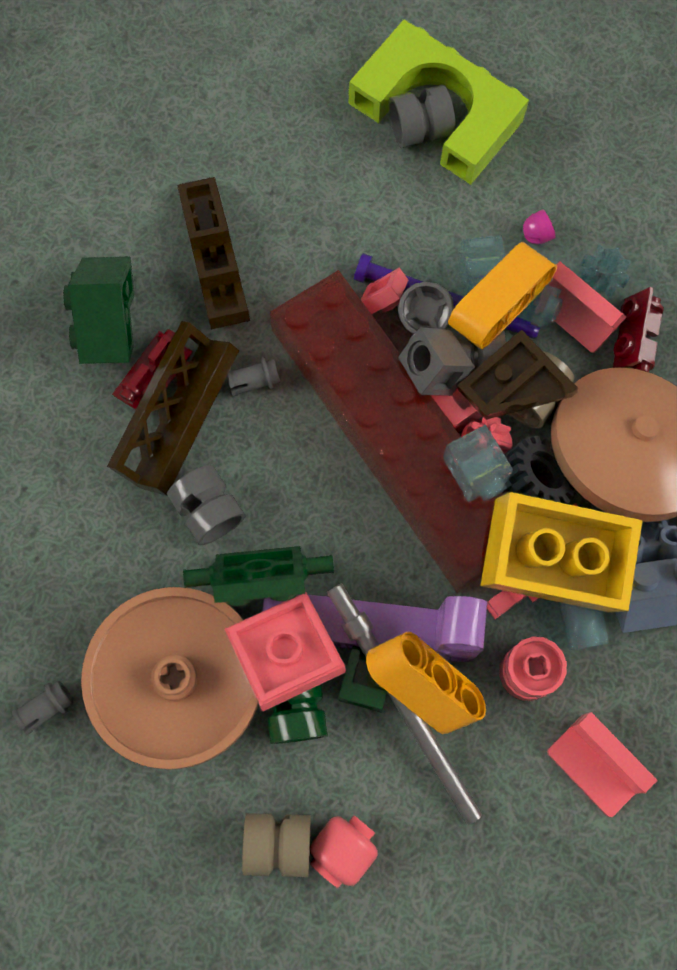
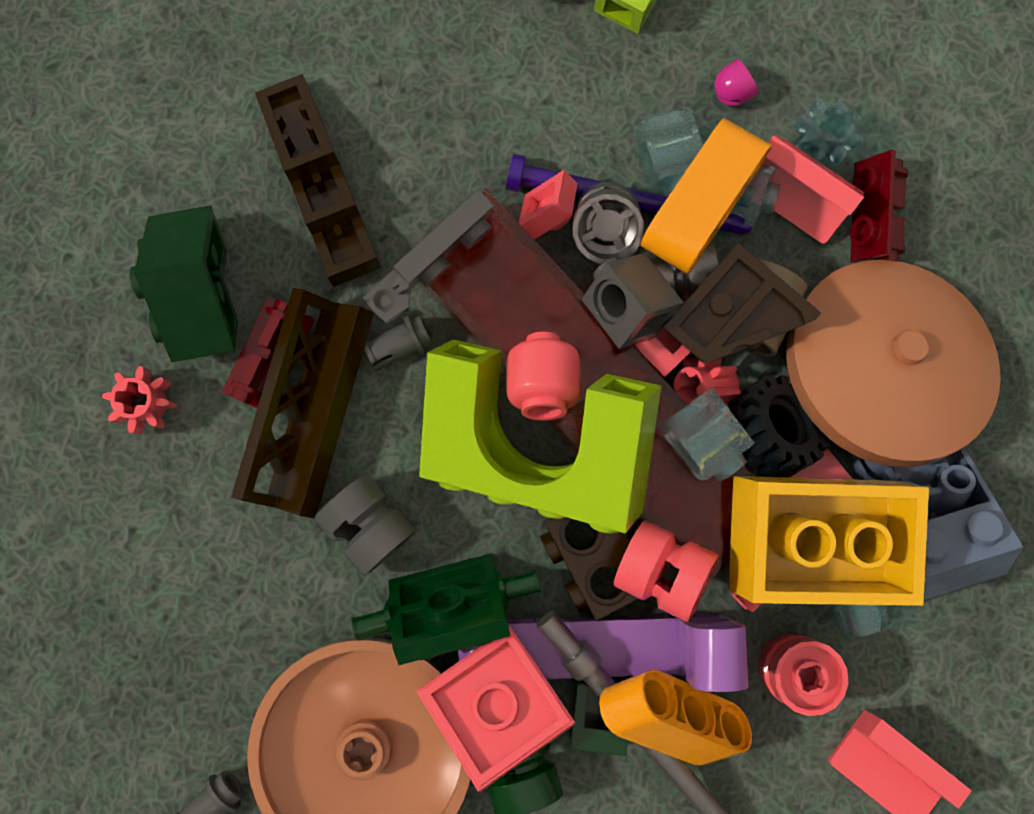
camera: 10 degrees left, 10 degrees up
(53, 399) = (124, 392): none -> coral gear
(287, 306) = (427, 259): none -> dark grey hinge
(294, 455) = (470, 452): none -> lime arch
(360, 403) = (543, 376): none -> coral head
(392, 554) = (604, 550): none -> dark brown brick
(429, 559) = (647, 562): none -> coral wheel

